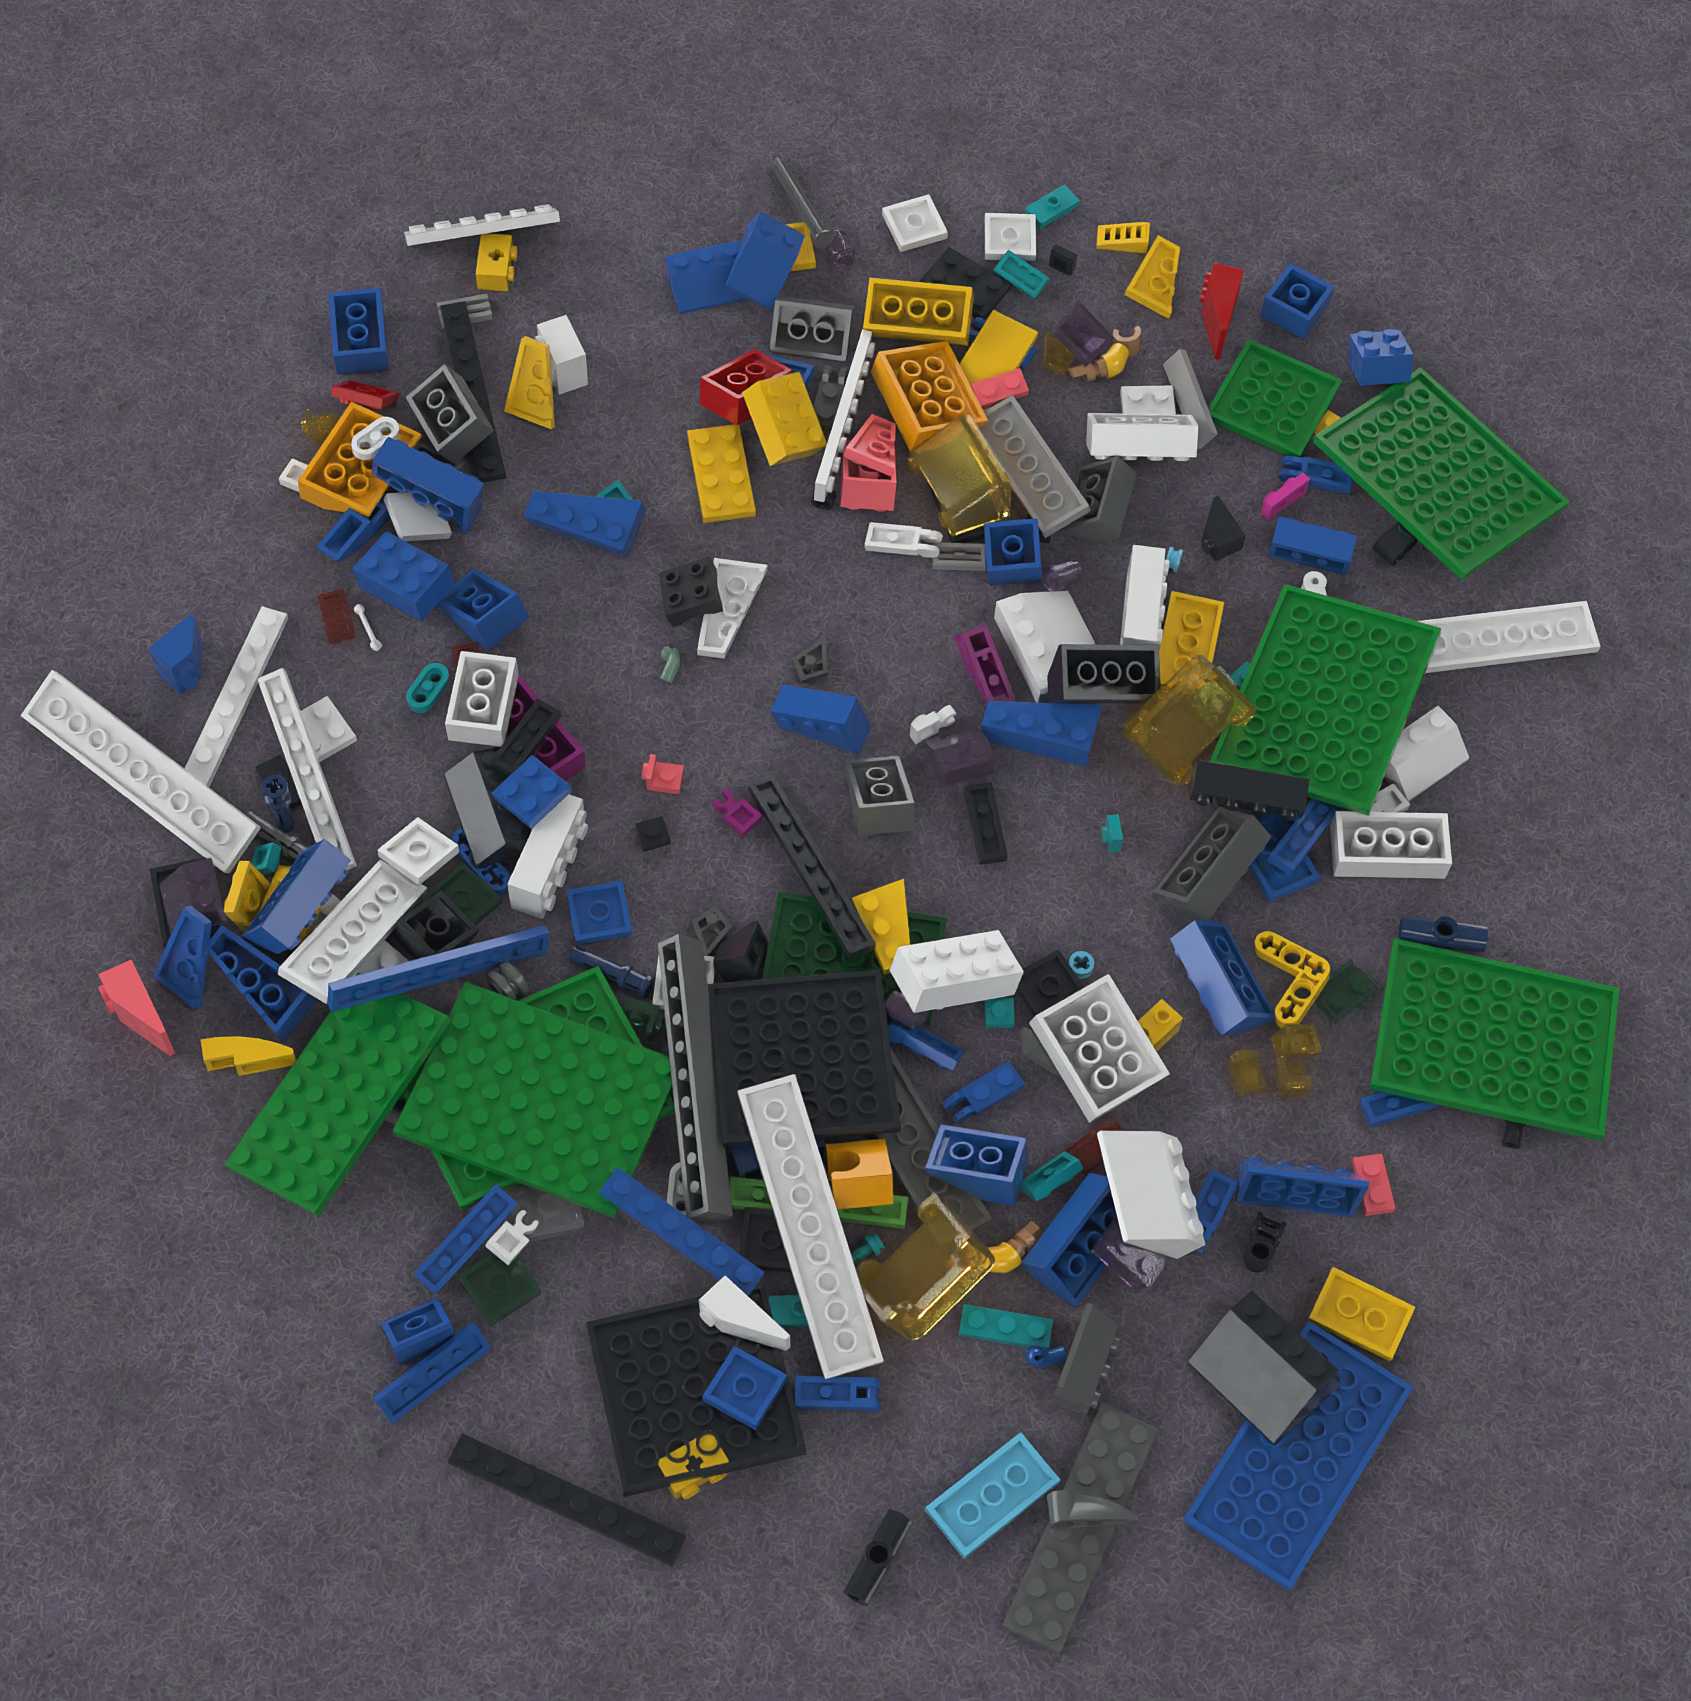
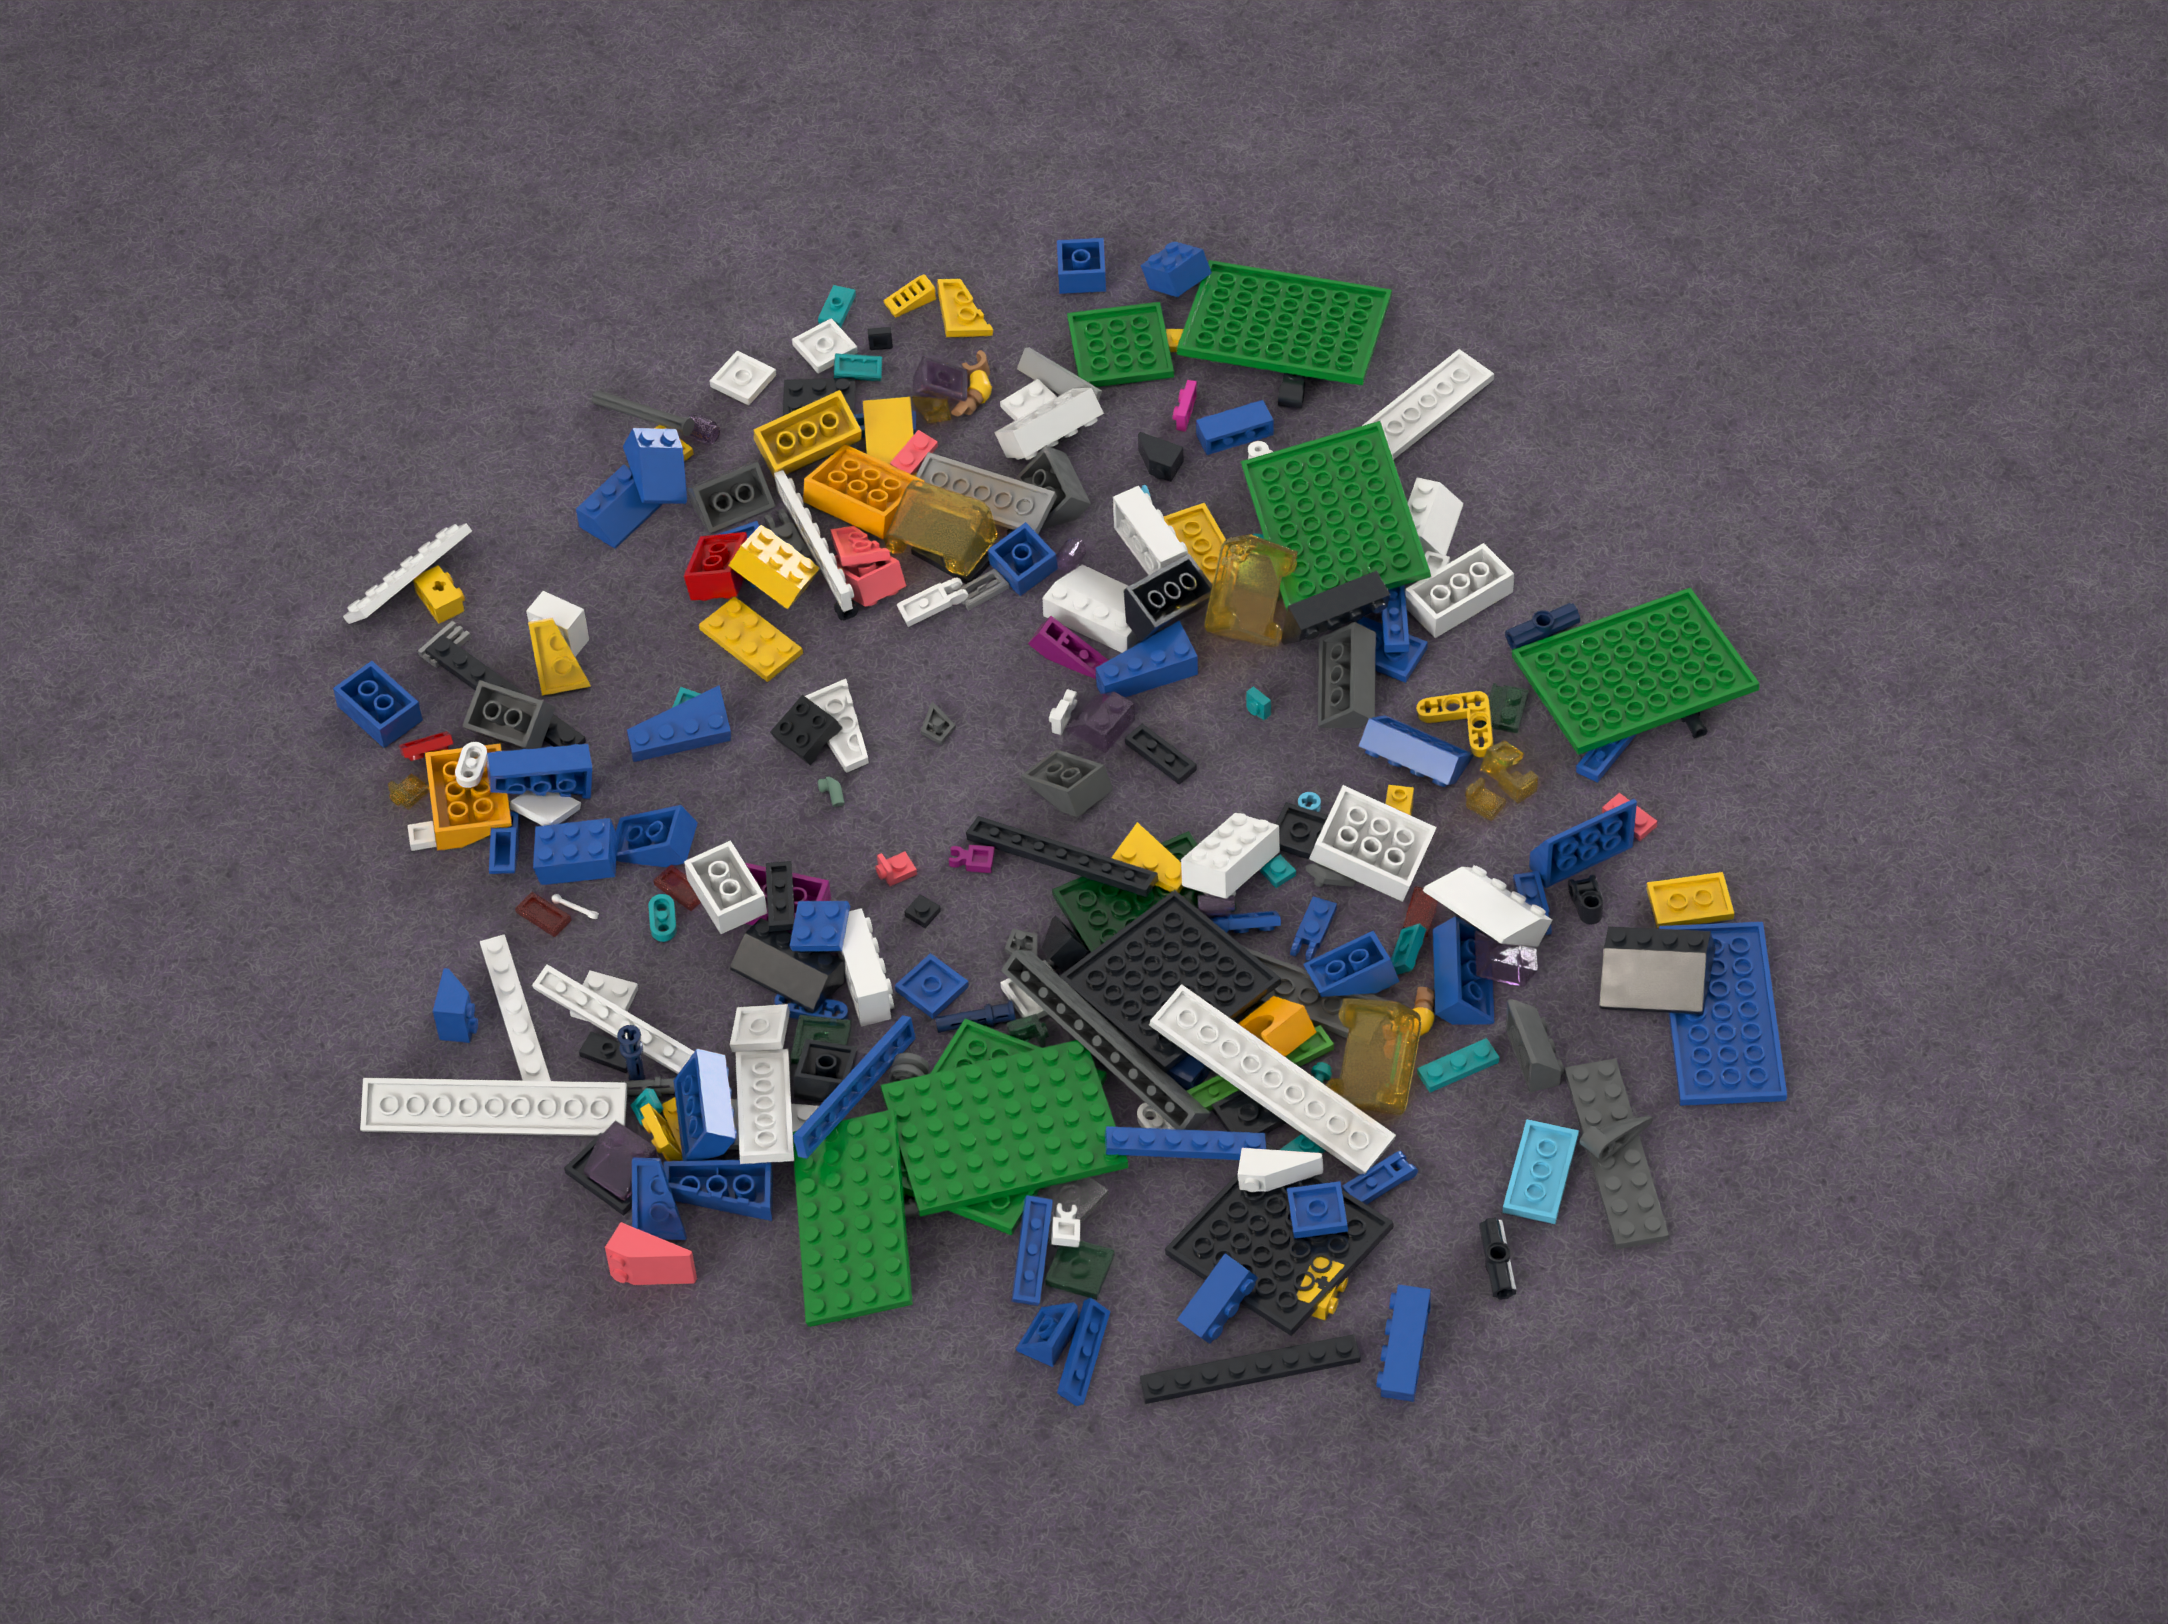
camera: 30 degrees left, 10 degrees down
(246, 1054) = (755, 1241): yellow slope -> none
(584, 1411) = (1218, 1299): none -> blue brick
(717, 1583) = (1405, 1342): none -> blue wedge
(822, 716) = (979, 754): blue wedge -> none
(1043, 1358) = (1500, 1066): blue arm -> none
(1219, 303) = (1028, 300): red slope -> none
(1321, 473) = (1204, 373): blue hinge -> none

